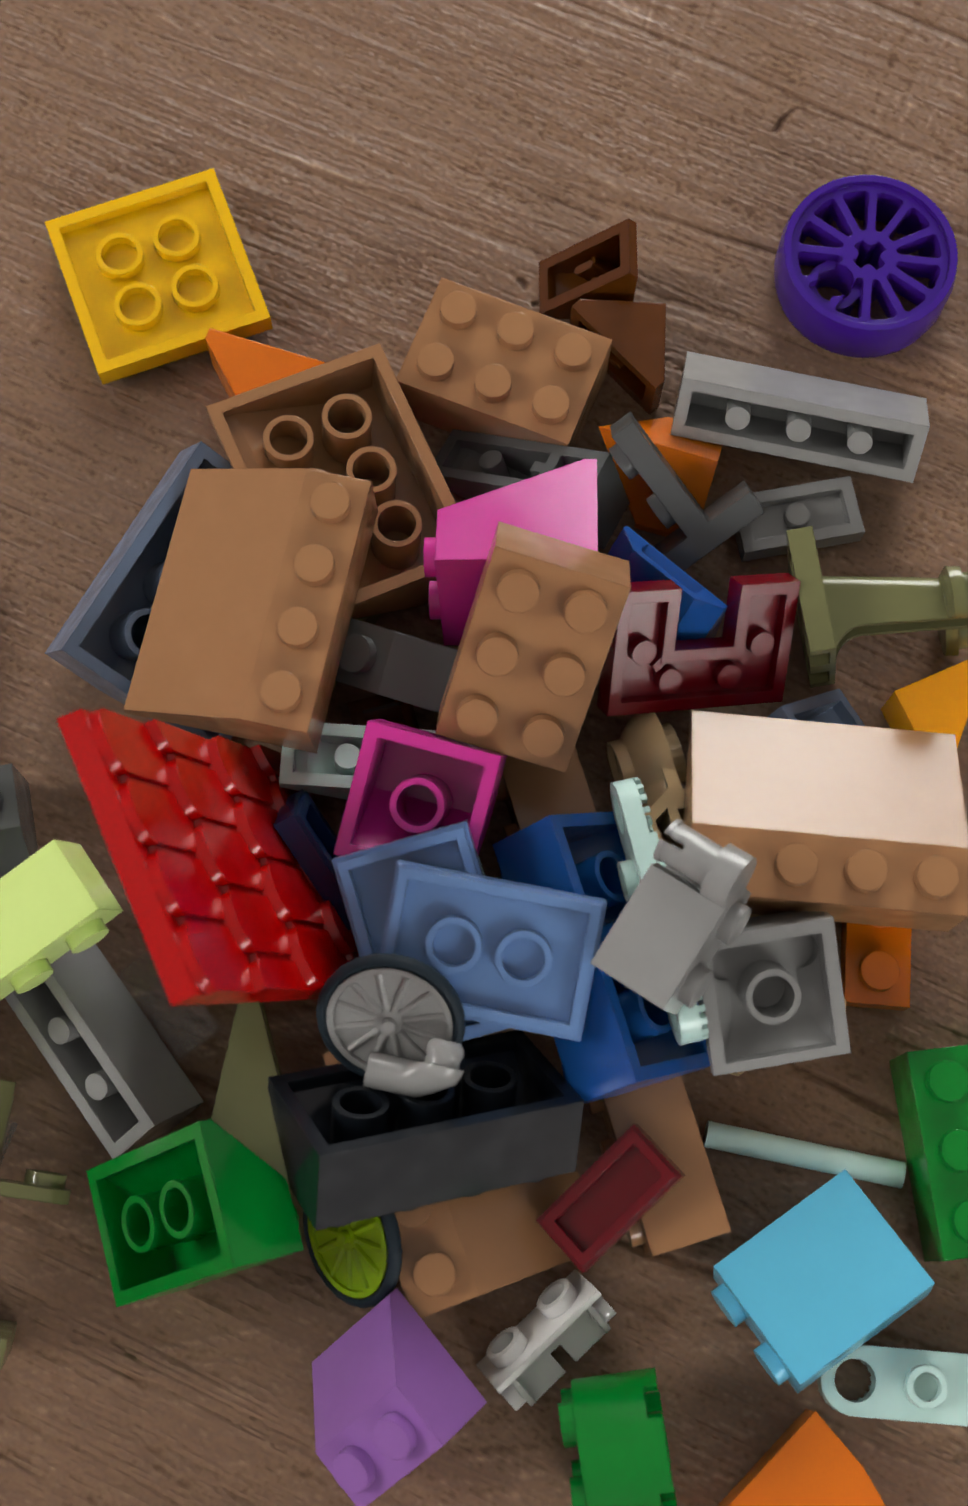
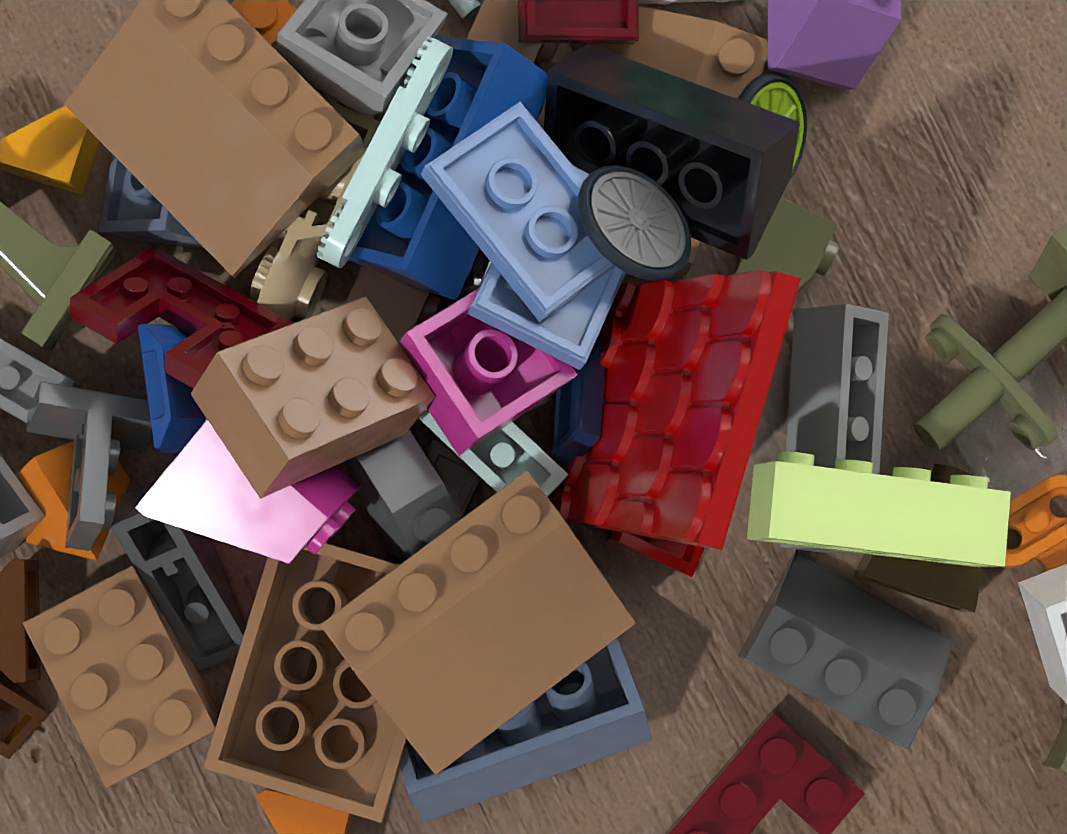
camera: 140 degrees left, 10 degrees up
(189, 1212) = (871, 219): green slope -> none
(415, 1077) = (650, 171): light grey arm -> none
(679, 919) = (392, 108): light grey hinge -> none

